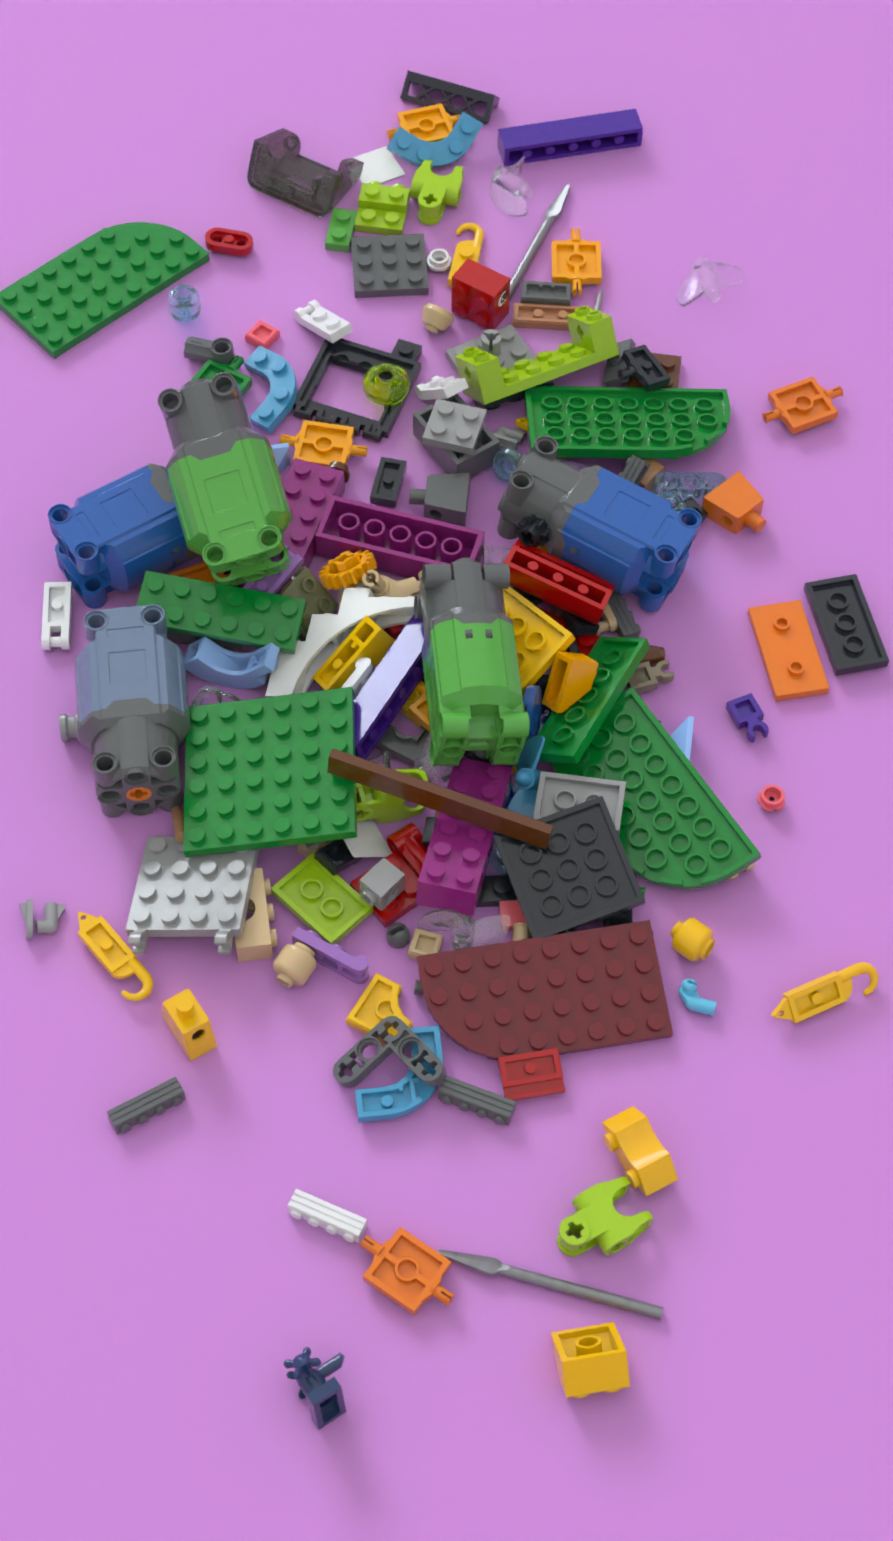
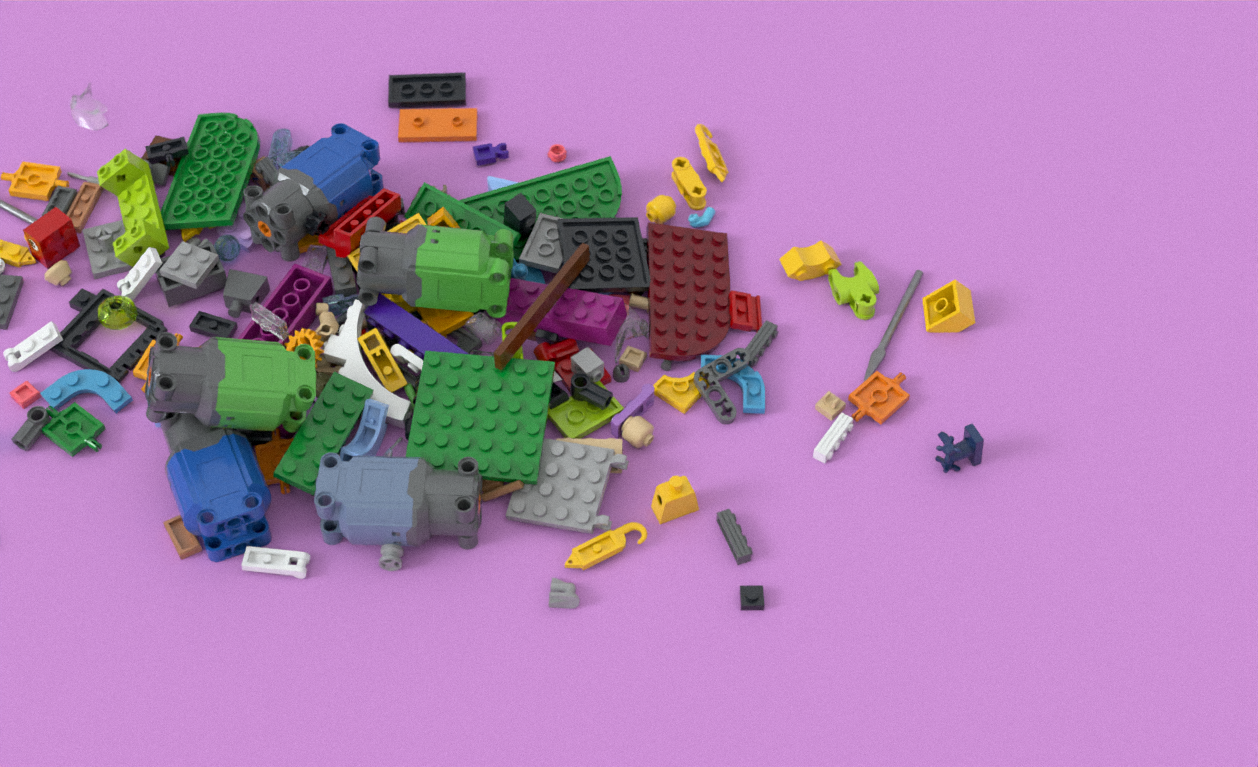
camera: 80 degrees left, 5 degrees down
(55, 1140) = (752, 597): none -> black plate
(339, 894) = (584, 389): none -> black piece
(376, 520) = (269, 321): none -> clear plate
(385, 1208) = (830, 405): none -> tan tile
(608, 755) = (520, 215): none -> black brick
(735, 505) = (307, 126): orange torso -> none
(754, 970) = (689, 183): none -> yellow piece
(802, 405) = (227, 76): orange plate -> none

